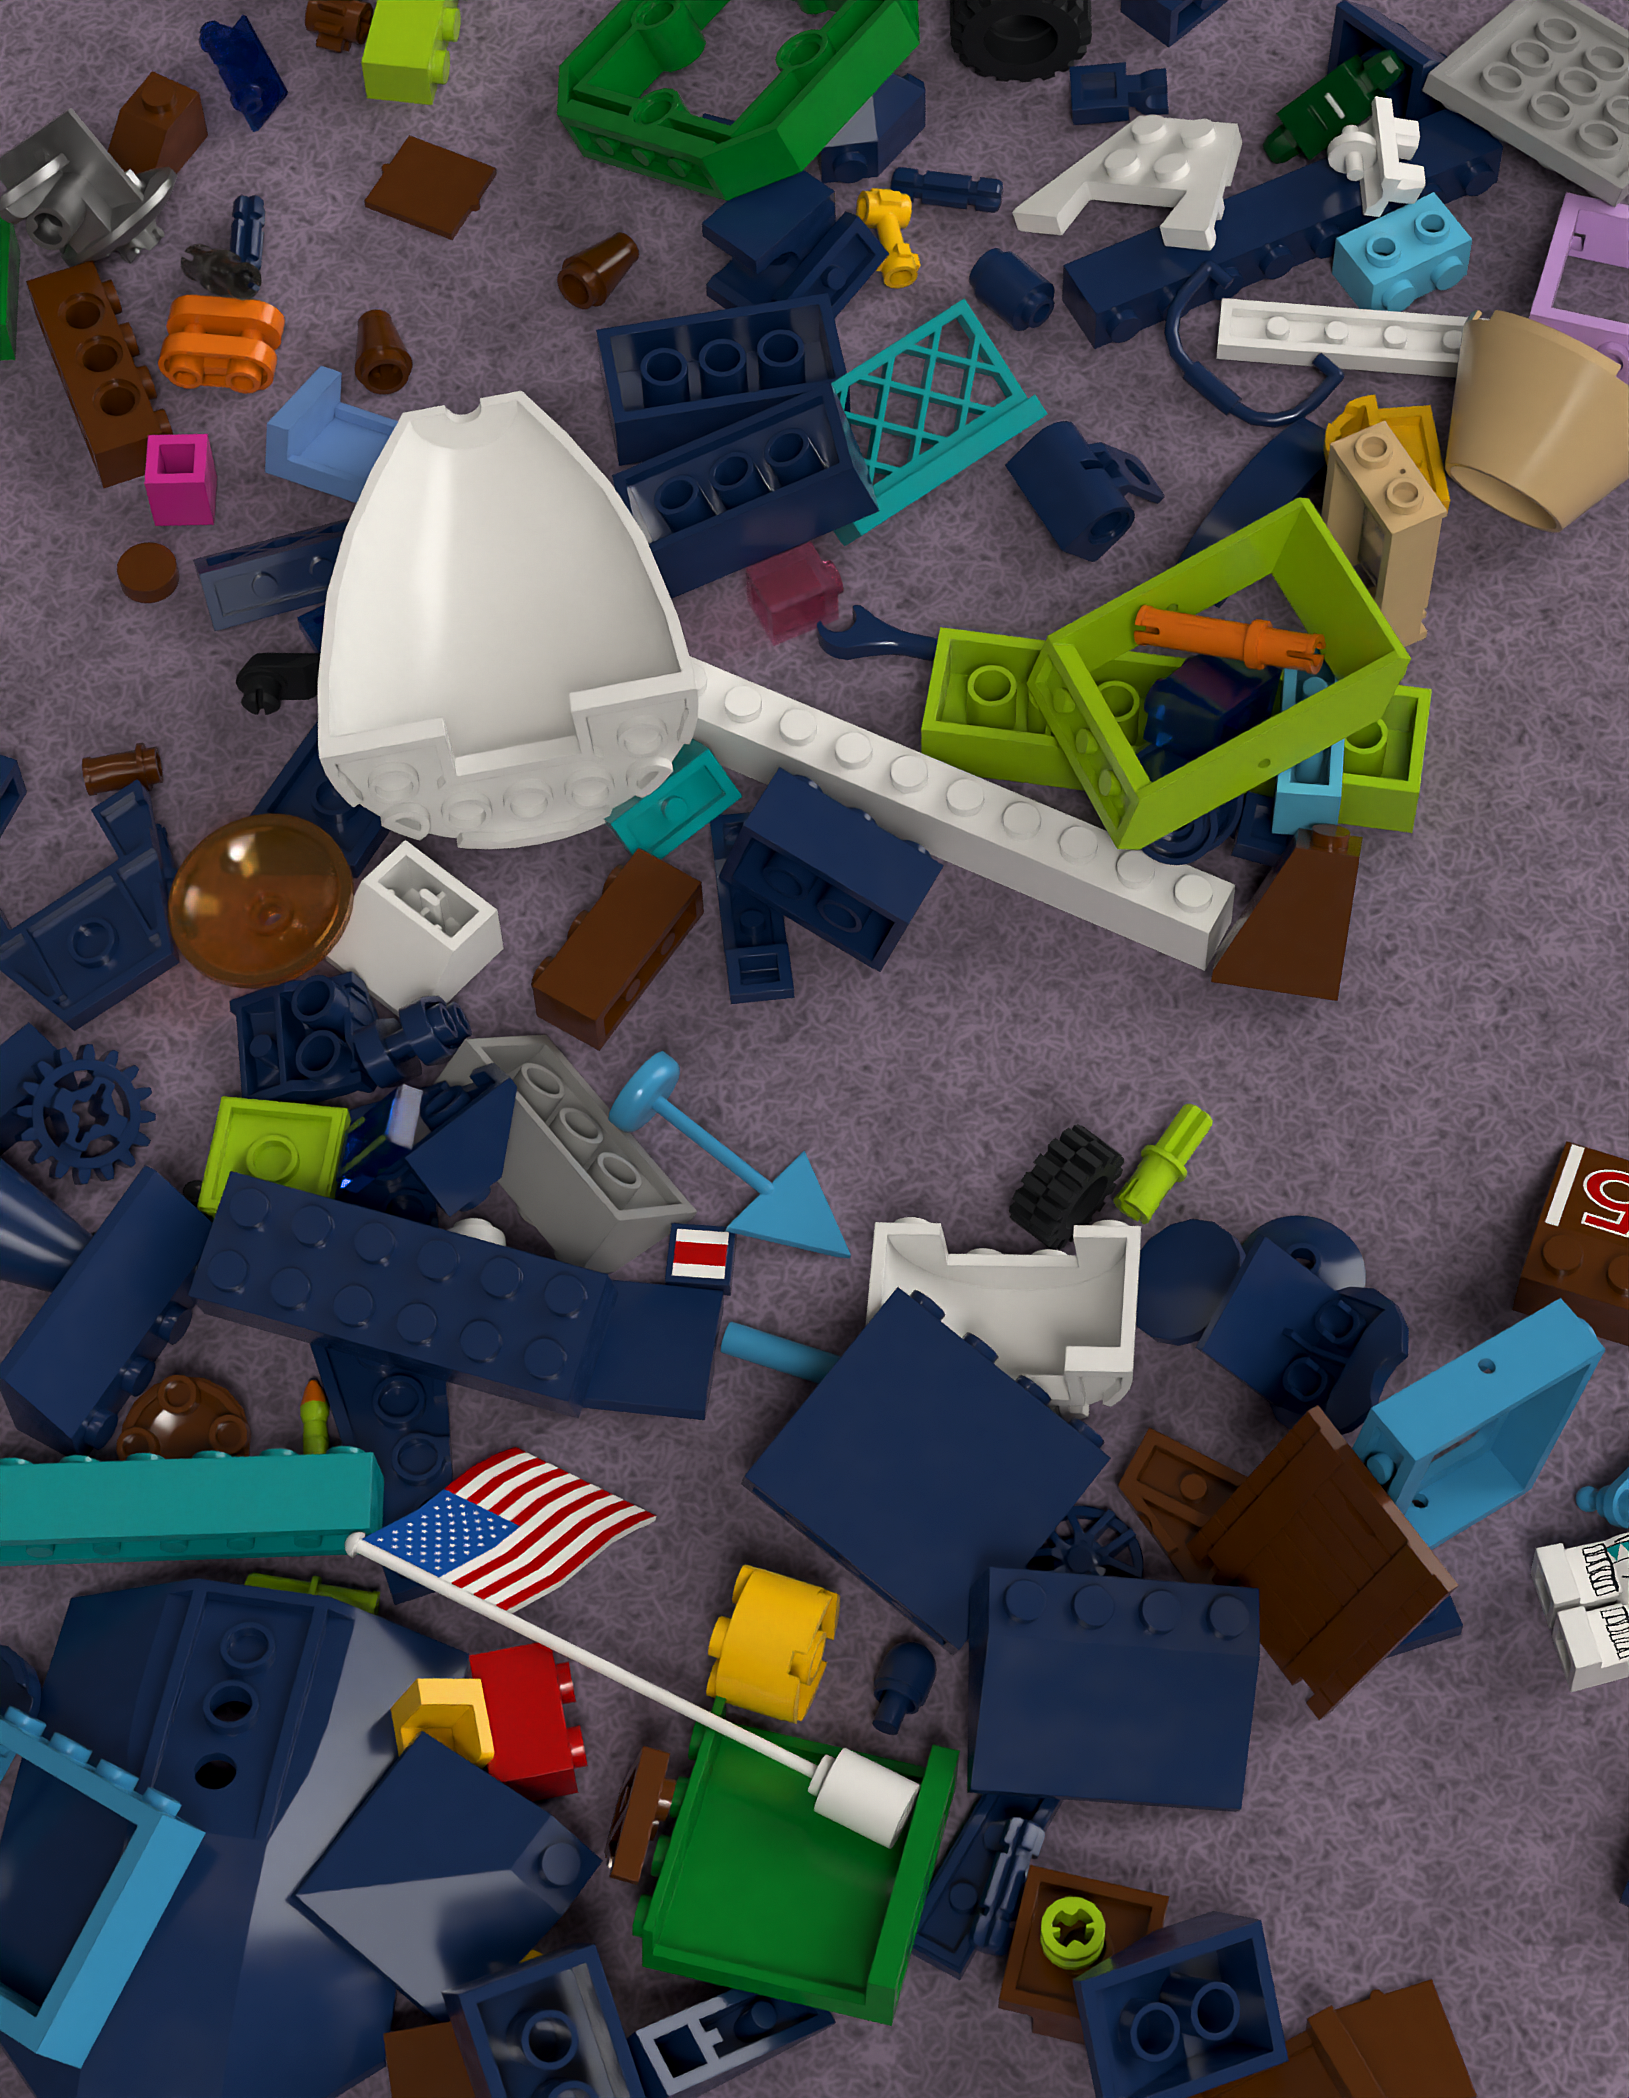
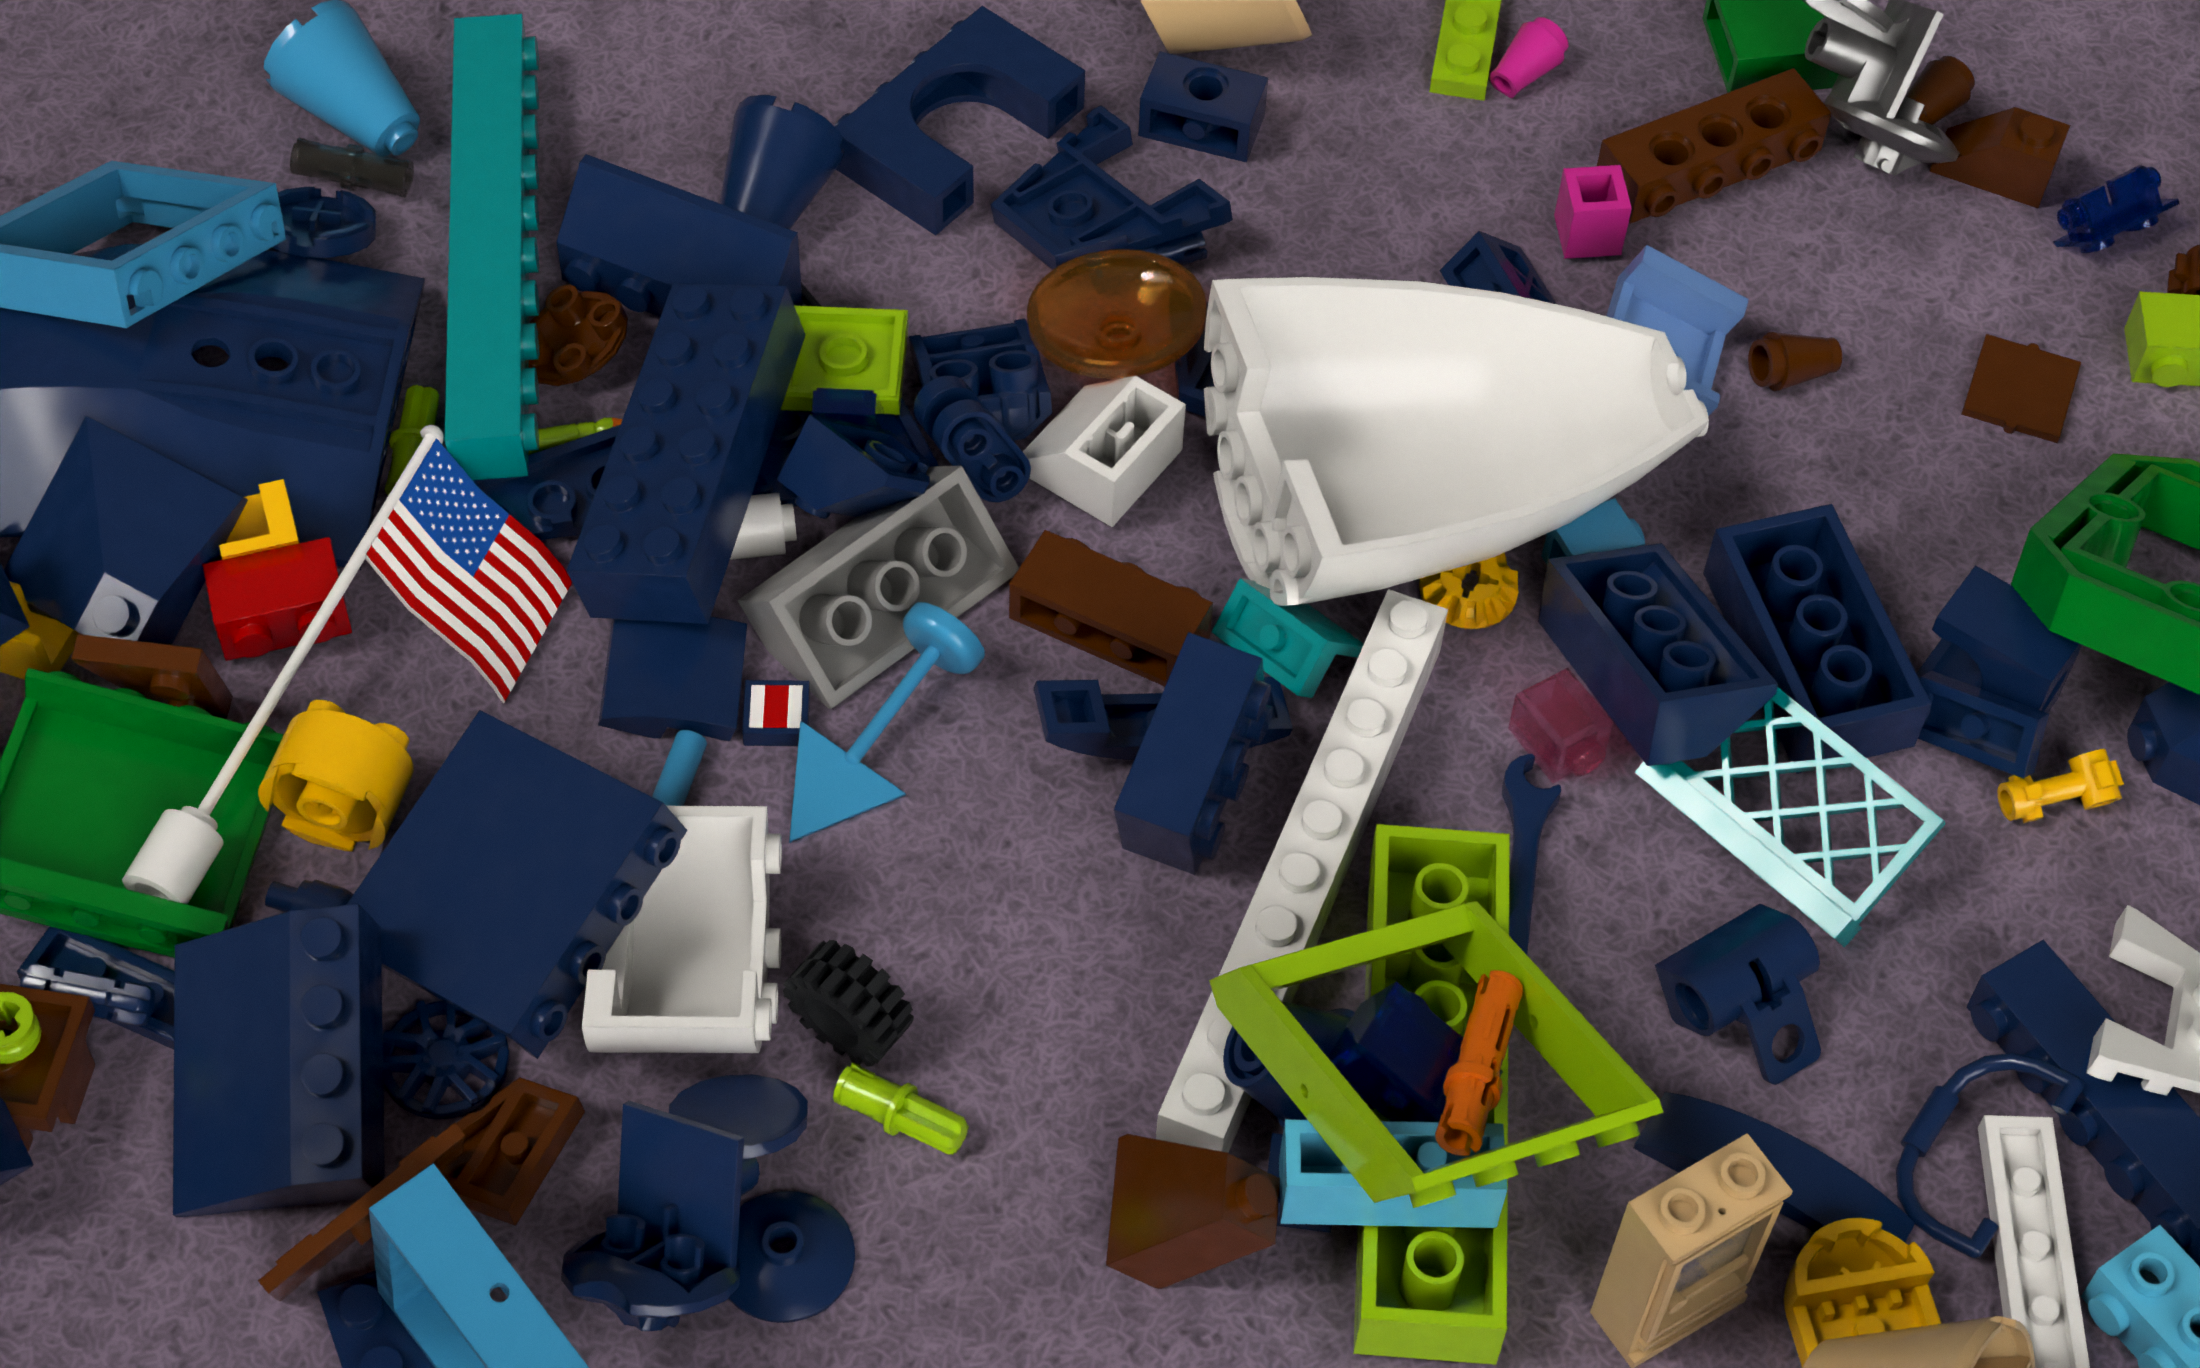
camera: 80 degrees right, 5 degrees down
(108, 1125) = (878, 198): dark blue gear -> none
(121, 769) = (1273, 228): reddish brown pin -> none
(148, 572) = (1499, 213): reddish brown tile -> none
(221, 272) = (1848, 214): clear smoke pin -> none
(221, 343) = (1748, 247): orange brick -> none
(247, 232) = (1903, 245): dark blue axle -> none
(597, 271) = (1944, 529): reddish brown cone -> none
(949, 189) = (2144, 842): dark blue axle -> none
(1012, 289) = (2014, 907): dark blue brick -> none

